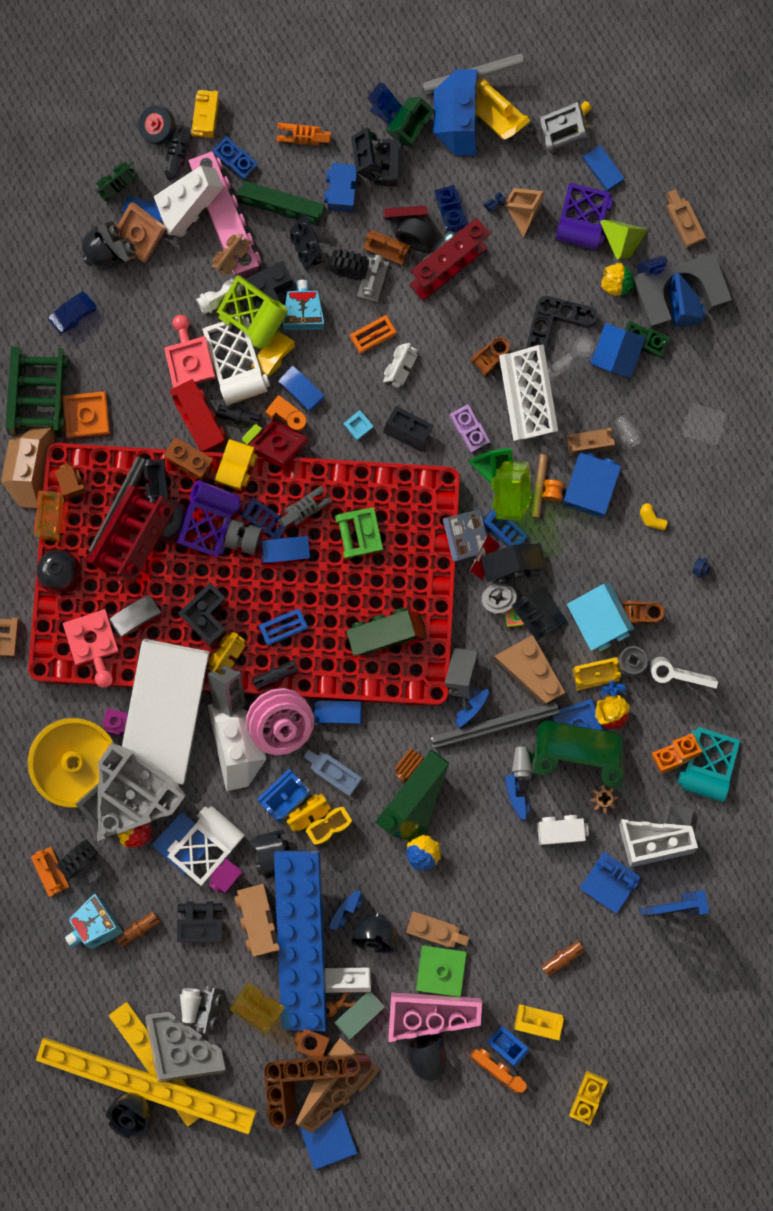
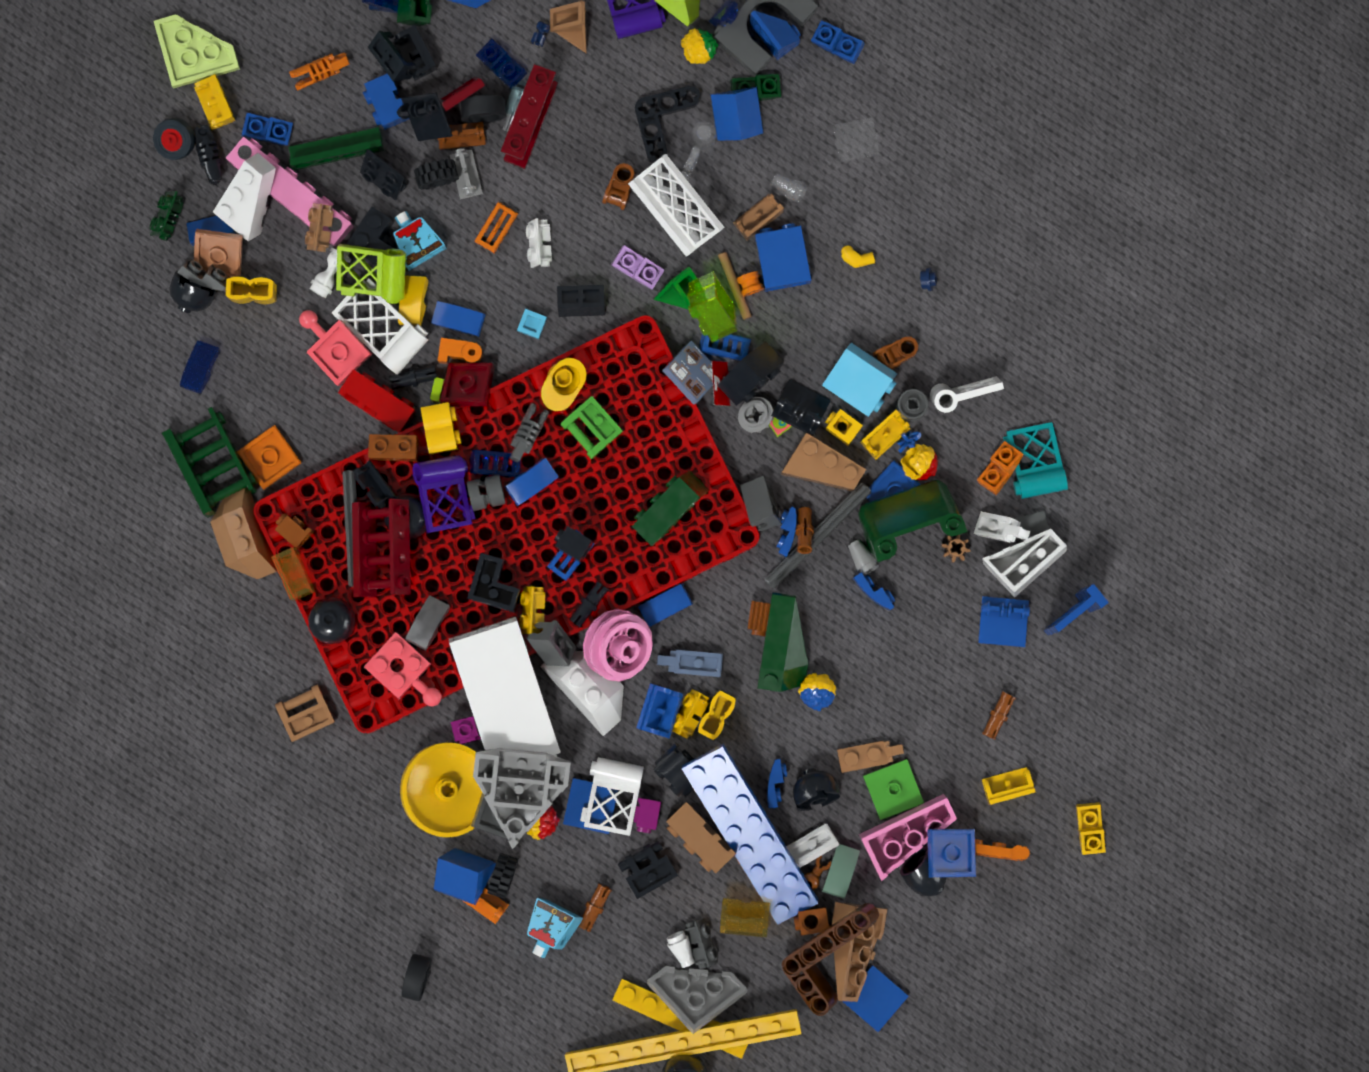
camera: 20 degrees left, 5 degrees up
(44, 840) = (462, 875): none -> blue slope
(144, 273) = (244, 291): none -> yellow brick
(210, 66) = (192, 52): none -> yellowish green plate
(289, 617) = (573, 544): none -> black brick
(355, 484) = (563, 384): none -> yellow piece
(366, 214) = (425, 116): none -> black hinge
(460, 1052) = (951, 853): none -> blue tile
(481, 723) = (804, 541): none -> dark orange pin
(508, 1046) = (992, 822): blue slope -> none
(562, 831) = (933, 600): white brick -> none
(573, 650) = (852, 426): none -> yellow brick
(649, 802) = (999, 528): none -> white hinge
(730, 338) = (836, 42): none -> blue slope

